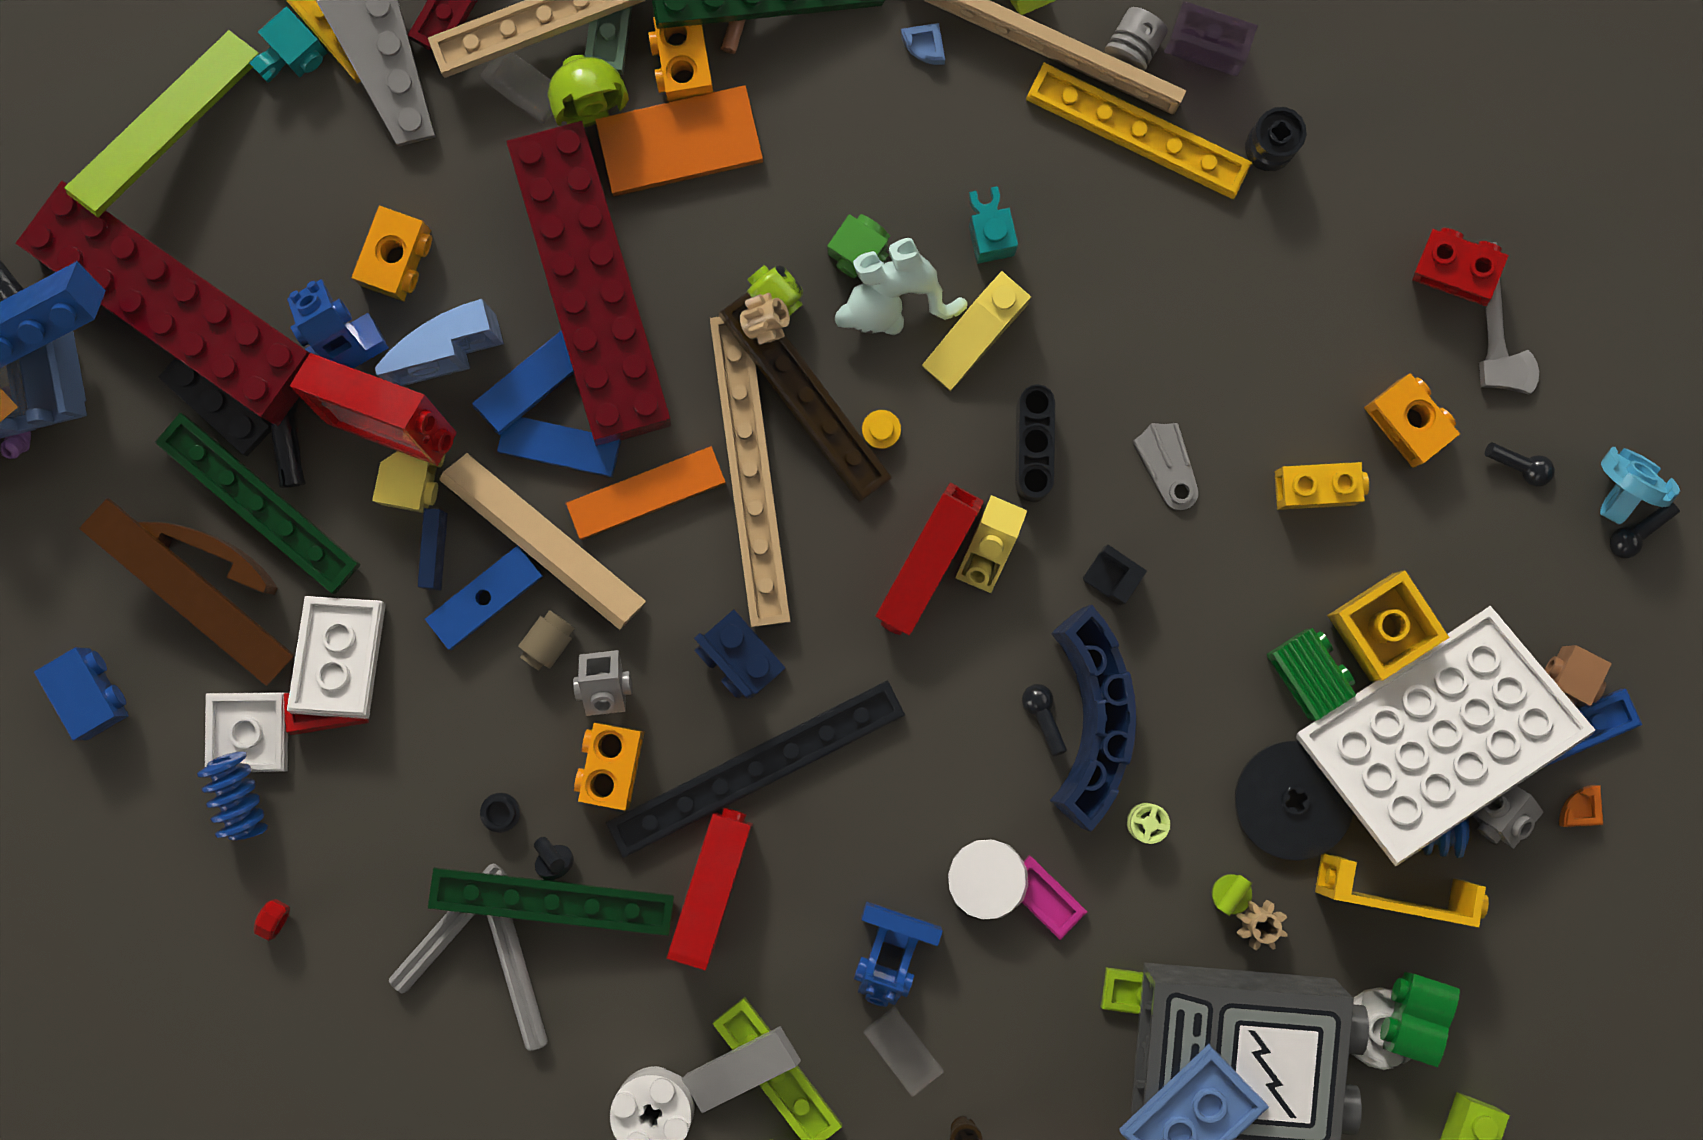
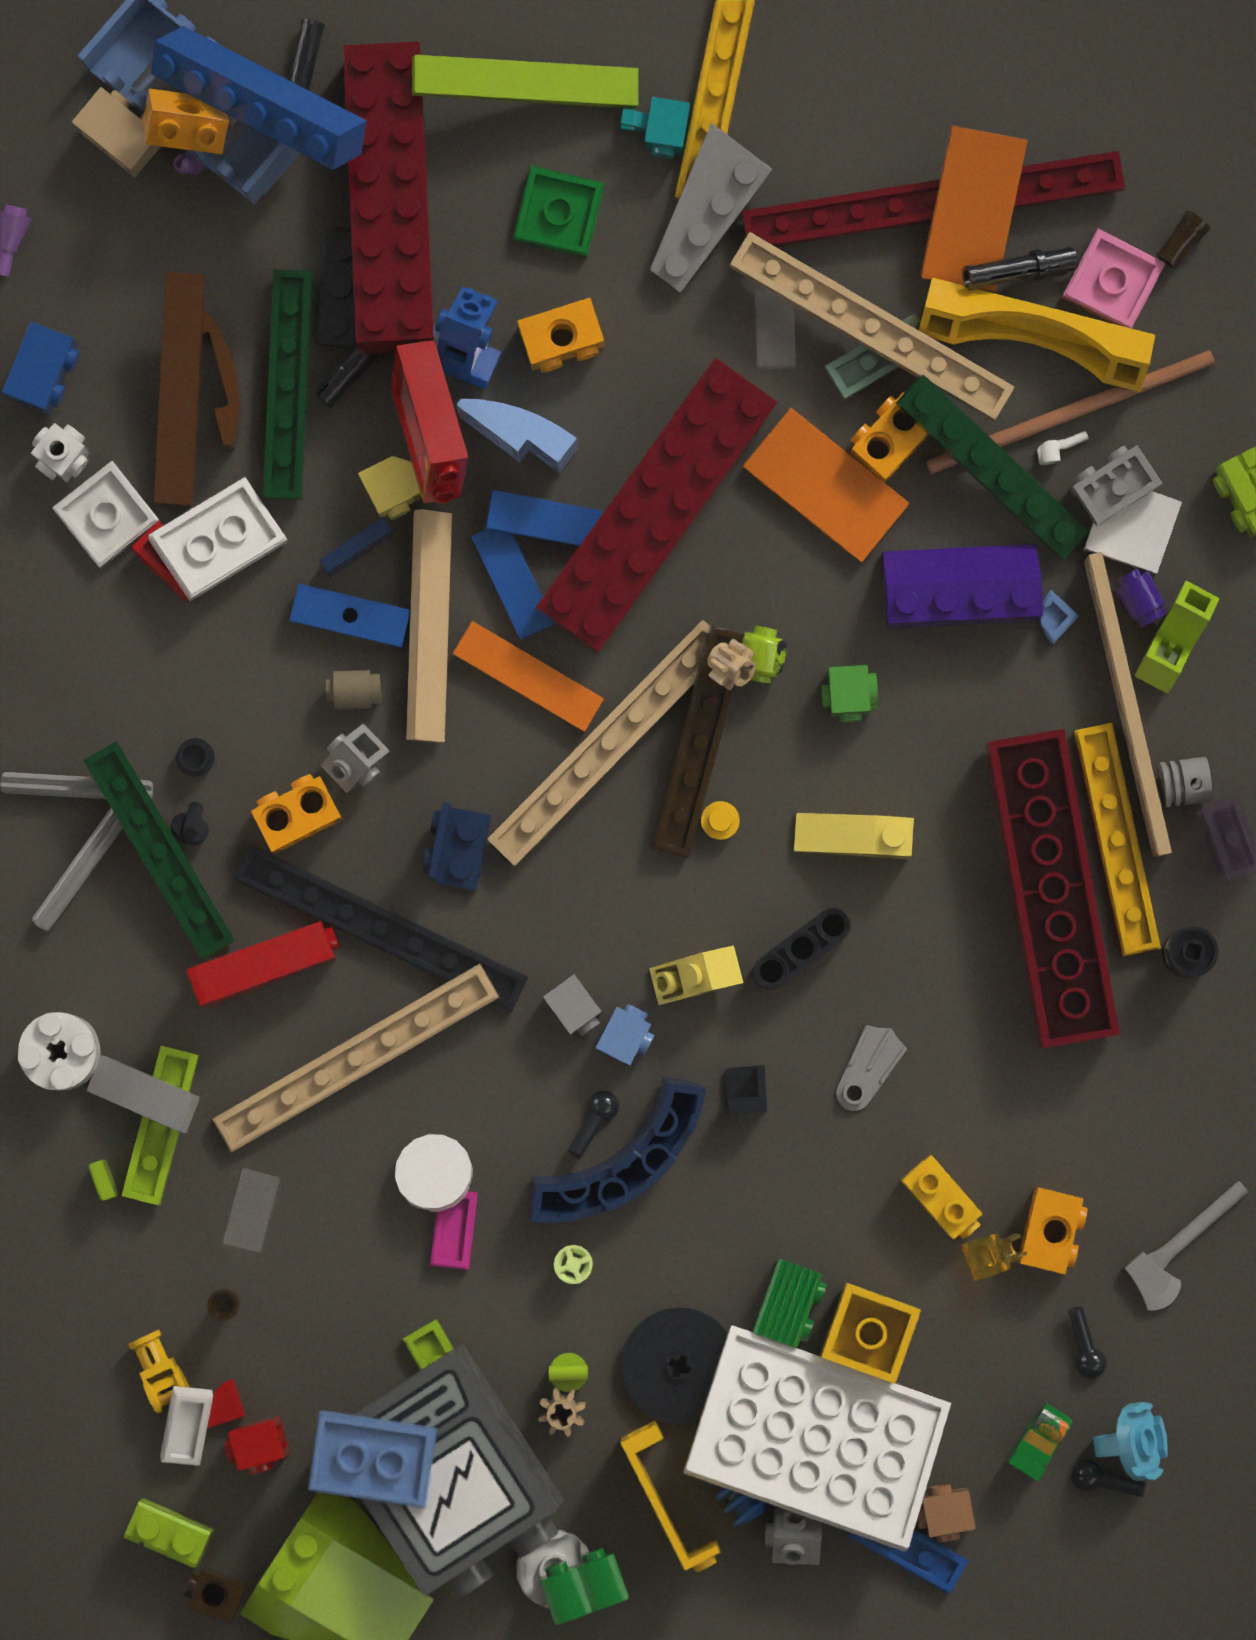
camera: 55 degrees right, 0 degrees up
(176, 732) = (67, 464): none -> white brick
(233, 797) = (51, 546): blue piece -> none
(293, 182) = (558, 212): none -> green tile
(585, 90) = (804, 384): lime cylinder -> none
(845, 94) = (962, 586): none -> dark purple slope
(845, 871) = (355, 1058): none -> tan tile
(876, 302) = (816, 738): light aqua animal -> none
(882, 983) = (290, 1152): blue tile -> none
(929, 560) = (647, 936): red slope -> none
(940, 661) = (573, 1006): none -> light grey brick
(991, 229) = (944, 784): teal brick -> none
(996, 637) = (626, 1035): none -> medium blue brick
(1142, 208) = (1052, 888): none -> dark red brick
(1397, 484) = (990, 1255): none -> clear yellow plate
(1460, 266) = (1201, 1174): red brick -> none
(1574, 559) = (1039, 1441): none -> green leg
(1582, 808) = (848, 1598): orange tile -> none

